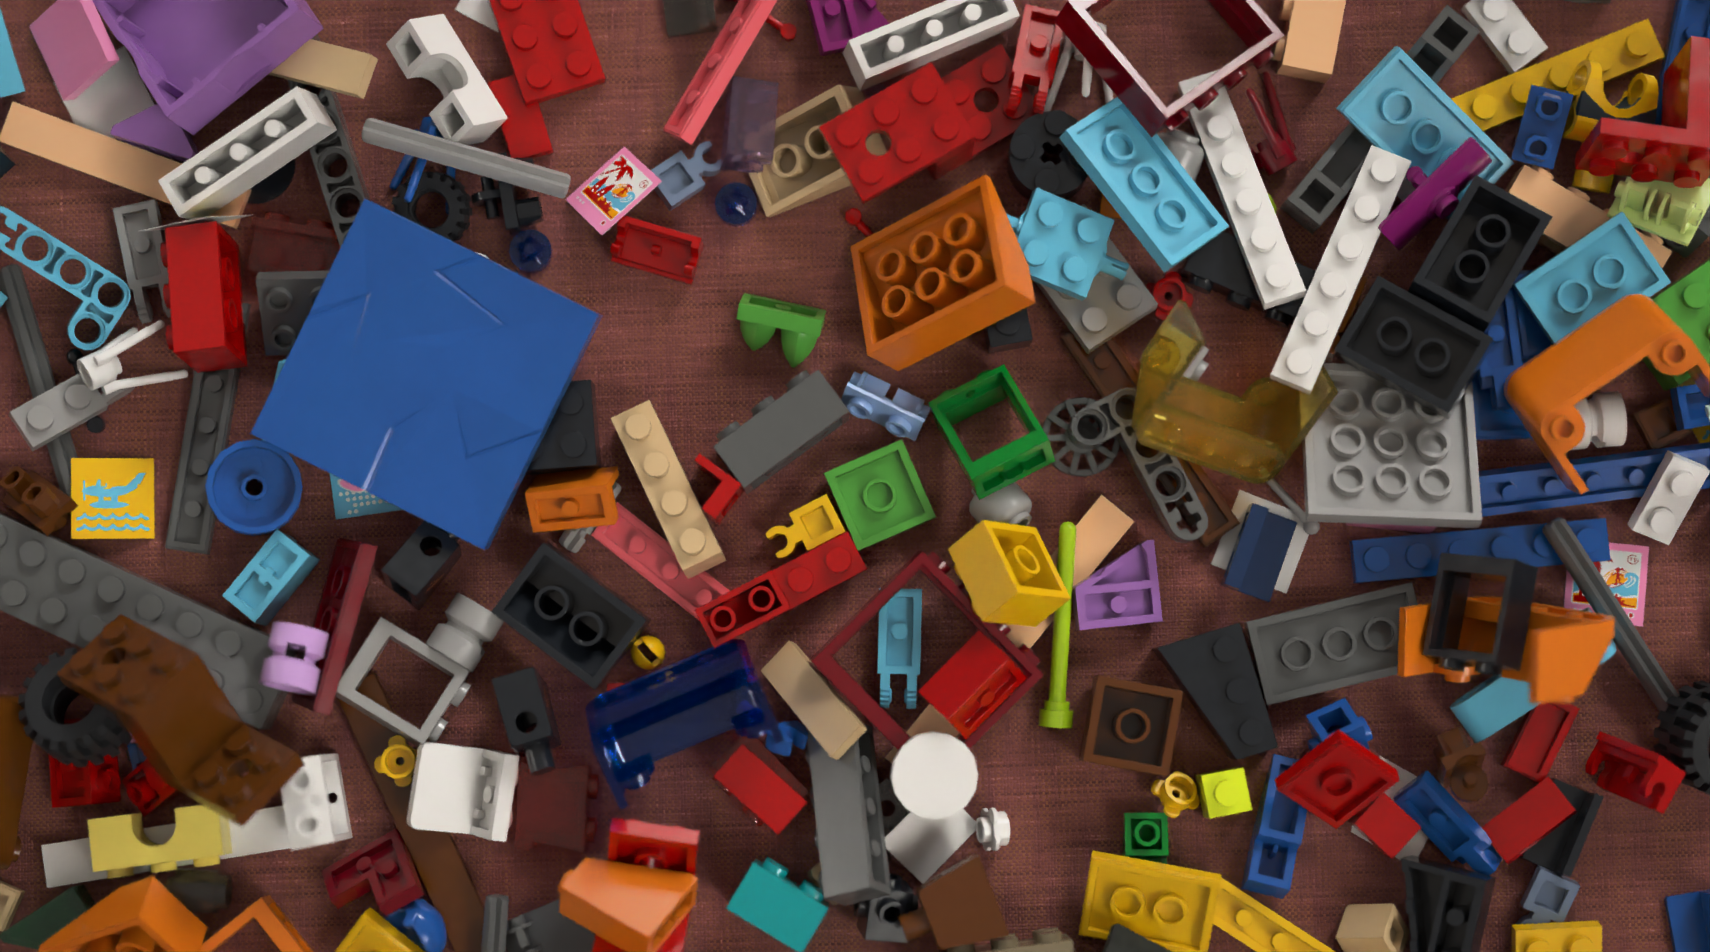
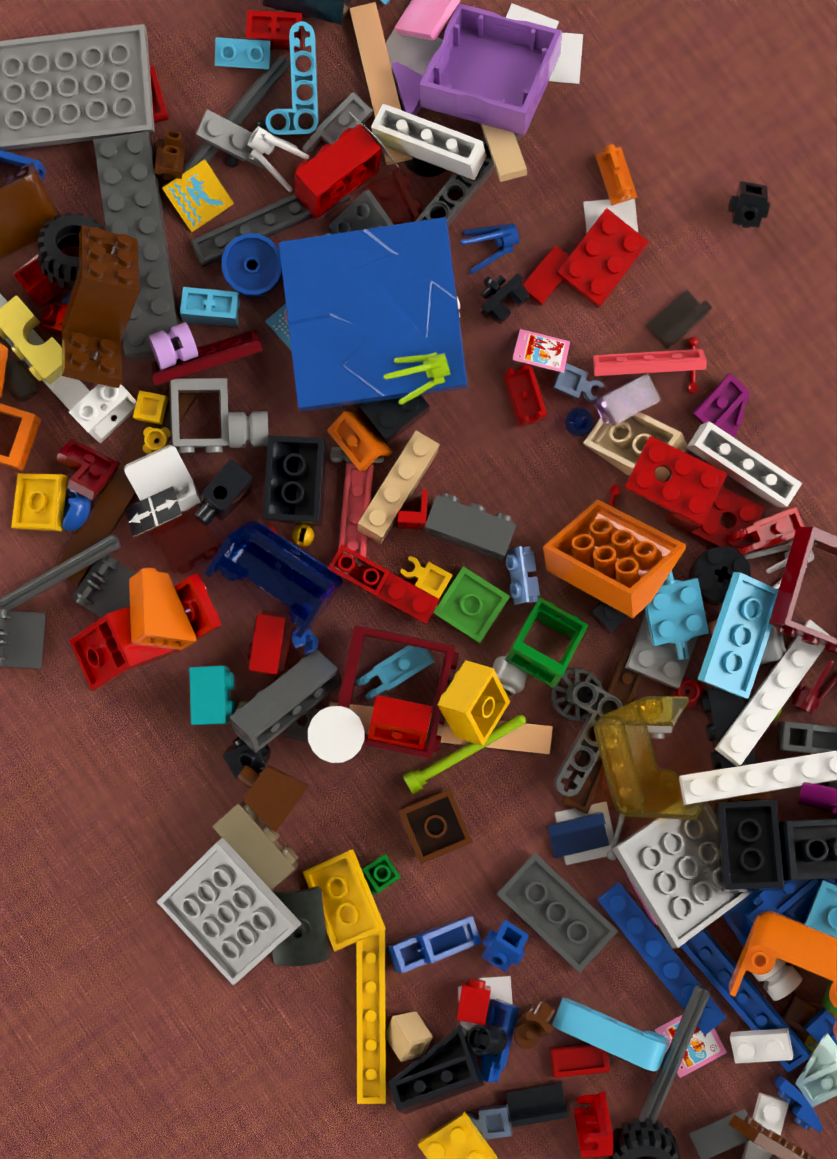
camera: 55 degrees right, 0 degrees up
(351, 741) = (150, 407): none -> yellow plate
(416, 574) = (262, 381): black torso -> none
(433, 51) = (552, 203): white arch -> none
(453, 193) = (481, 268): black tyre -> none
(465, 157) = (505, 259): light grey axle -> none
(491, 825) = (153, 511): none -> black sticker
(530, 251) = (479, 328): clear blue tile -> none
(550, 339) = (434, 365): none -> lime plant
(798, 325) = (535, 498): bright green tile -> none
(813, 700) = (334, 642): tan tile -> none
(927, 843) = (297, 756): white sticker -> none
(992, 829) = (329, 786): white plate -> none
(1120, 592) = (505, 772): medium lavender wing -> none
(1183, 787) = (421, 875): yellow plate -> none
(1223, 688) = (489, 864): black wedge -> none
(1223, 792) = (432, 901): neon yellow brick -> none
(1337, 779) = (480, 959): red plate -> none
(1442, 837) = (487, 1040): none -> black wheel
(1449, 608) = (617, 961): black window -> none
(1529, 820) = (529, 1083): red tile -> none
(1558, 654) = (628, 1020): orange windscreen -> none

